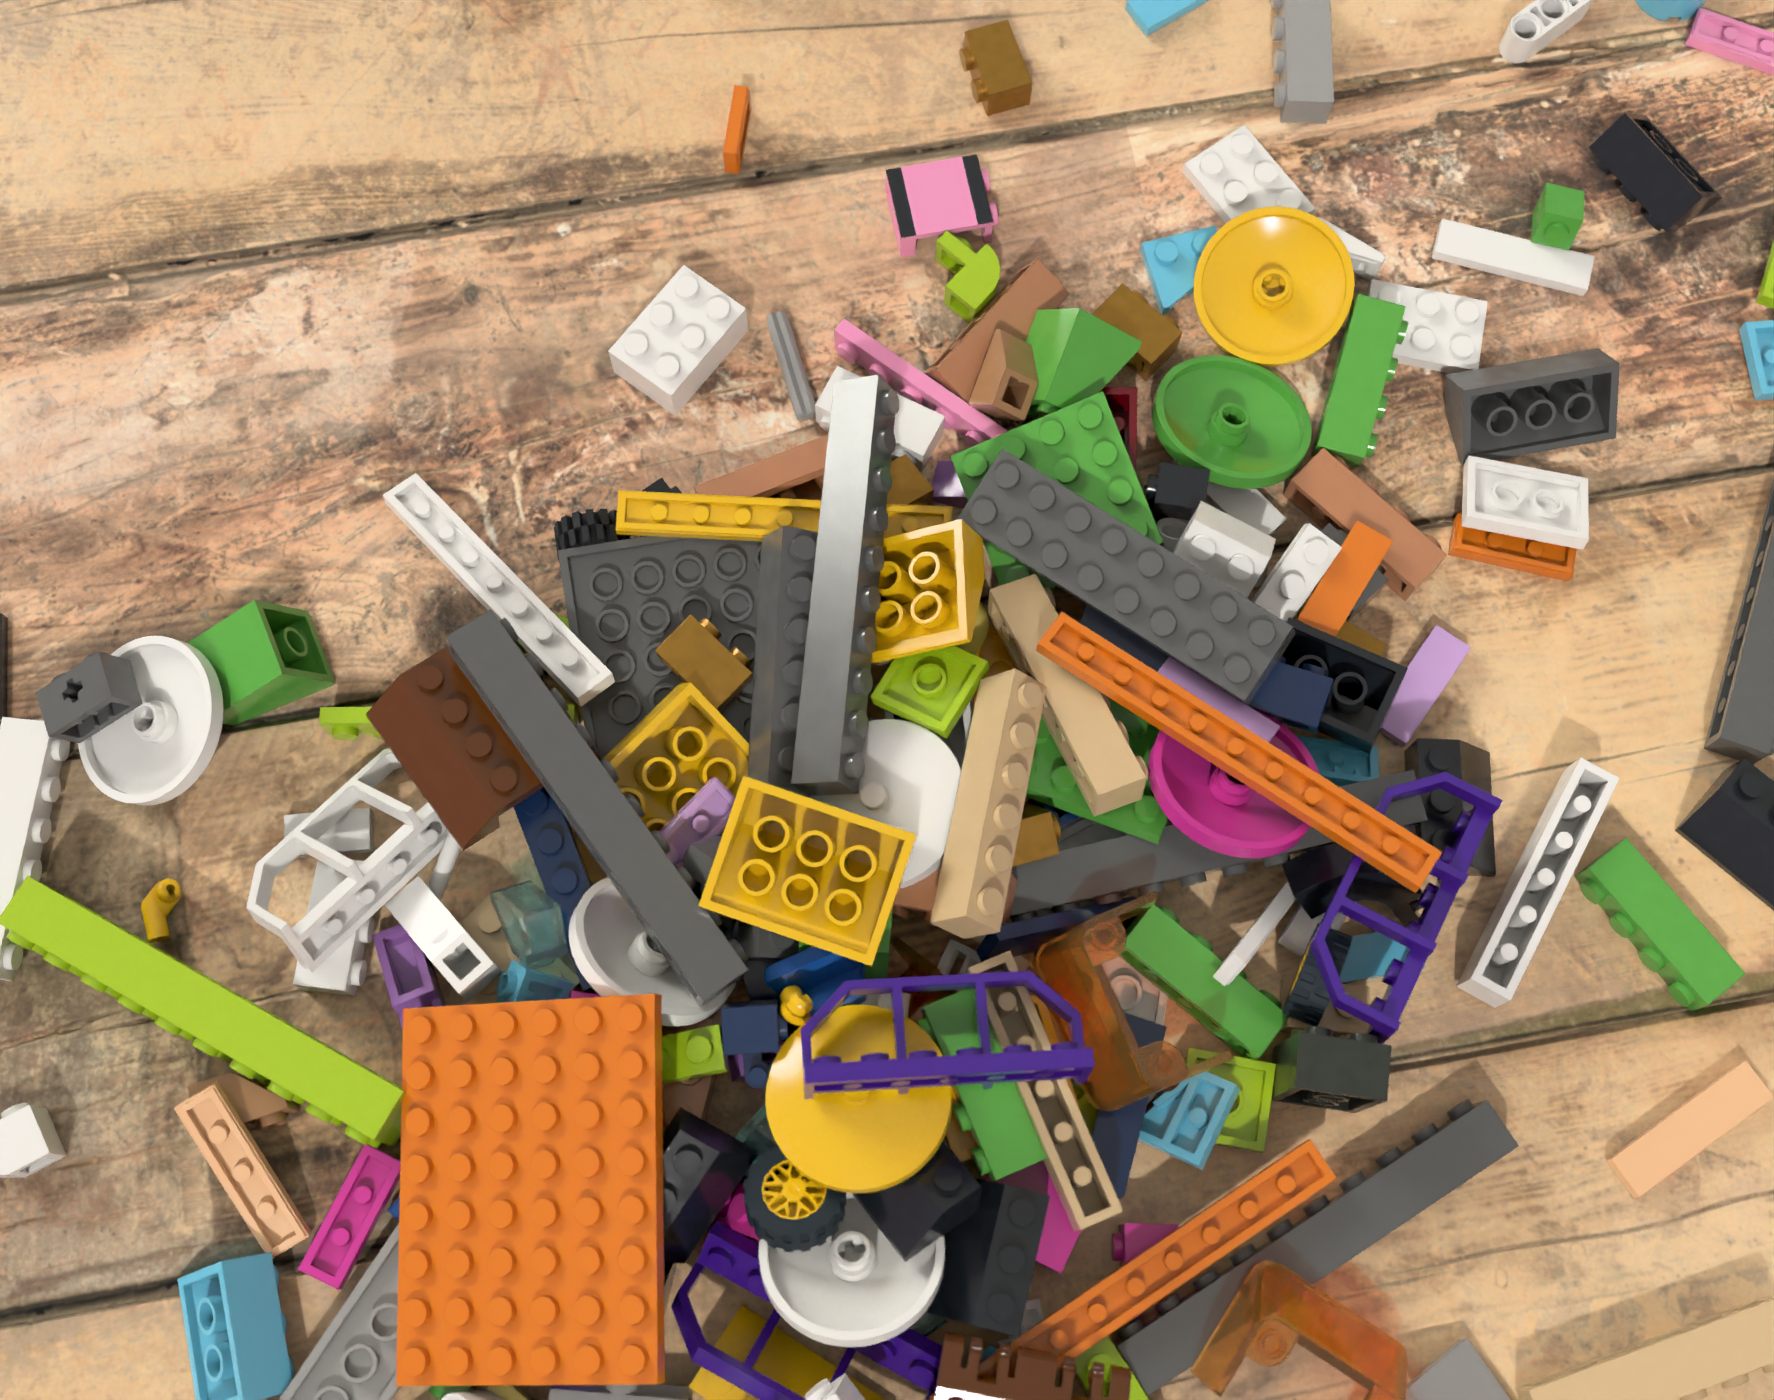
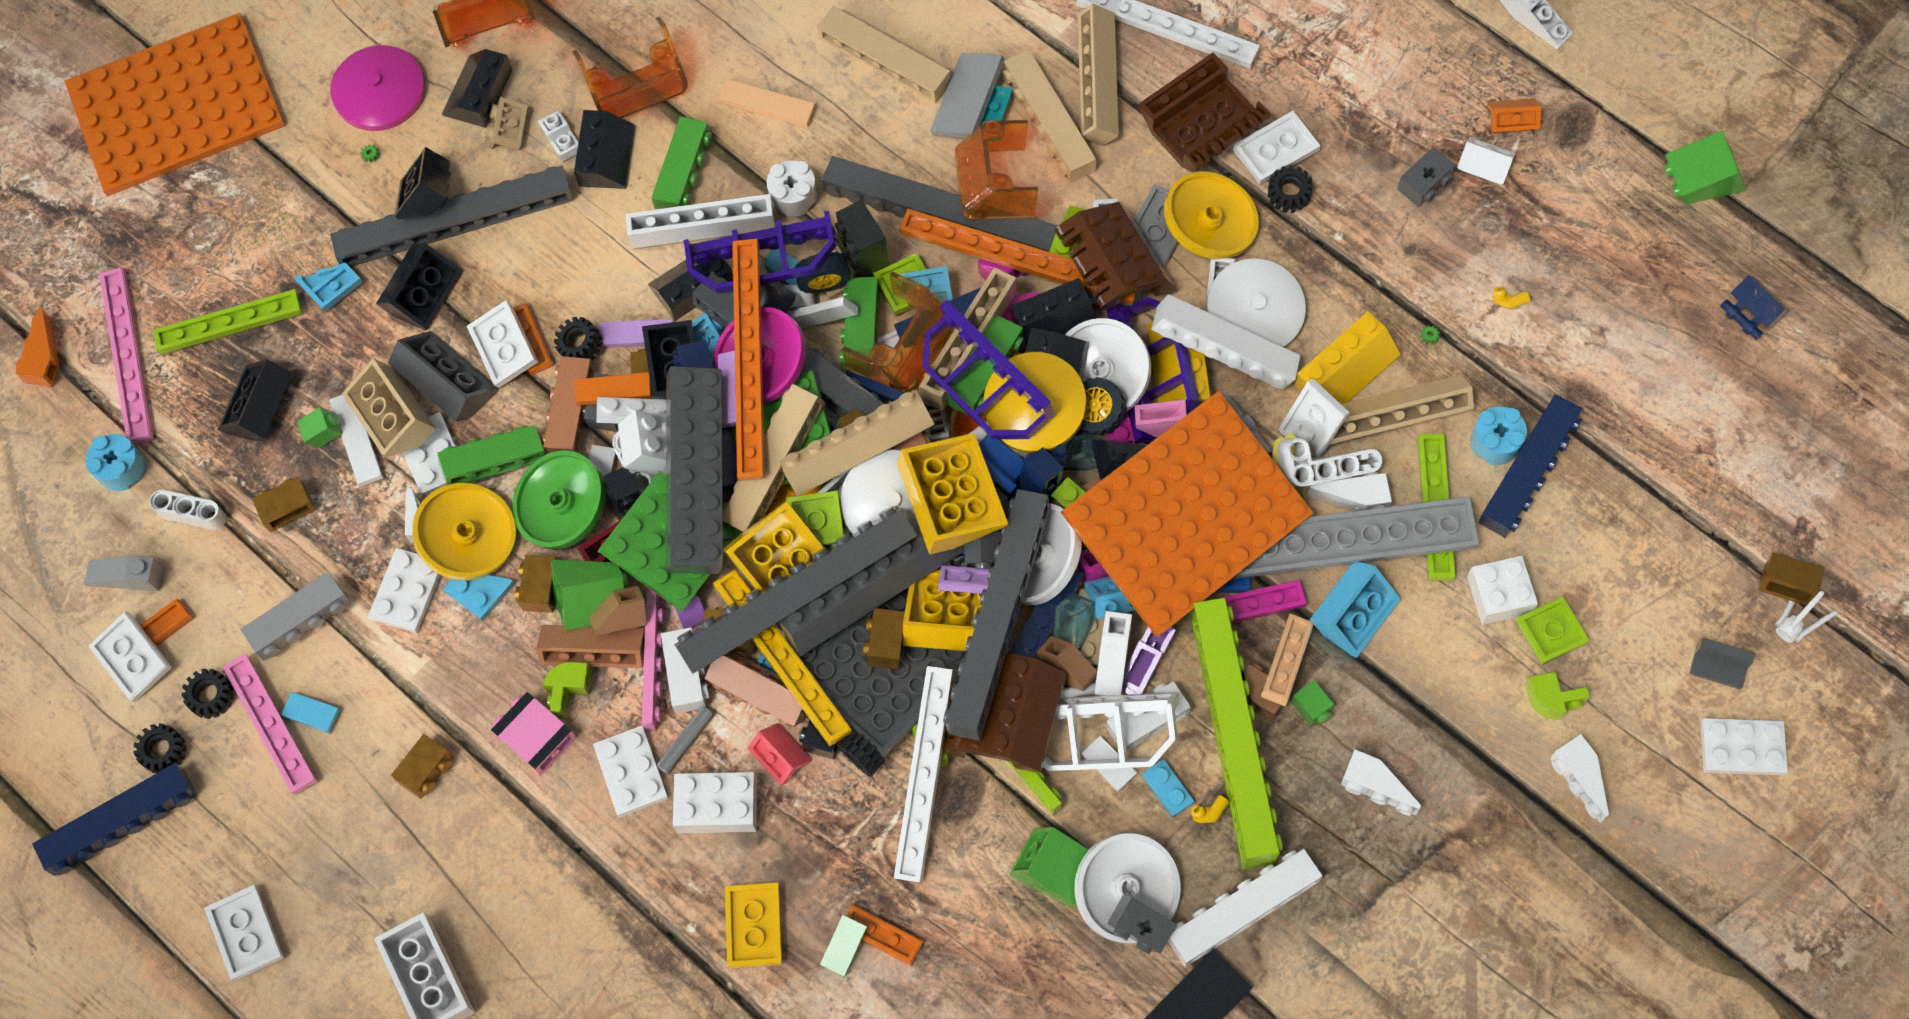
camera: 120 degrees left, 5 degrees down
(163, 1157) = (1313, 704): none -> bright green brick
(225, 880) = (1167, 788): none -> medium azure plate
(367, 417) = (887, 936): none -> orange tile
(388, 364) = (844, 945): none -> tile
(486, 871) = (1068, 659): none -> medium nougat slope
(501, 286) = (753, 925): none -> yellow plate
(682, 456) = (778, 753): none -> coral panel
(710, 1281) = (1159, 417): none -> bright pink slope
(737, 129) = (563, 875): orange tile -> none
(795, 1005) = (1017, 456): yellow arm -> none
(804, 282) = (630, 771): none -> white plate
(1468, 582) = (571, 331): none -> black tyre
(1476, 121) = (283, 504): none -> pearl gold piece
(1521, 301) = (388, 409): none -> tan slope
(1529, 1044) = (792, 187): none -> white brick
(1695, 458) = (419, 286): none -> black slope

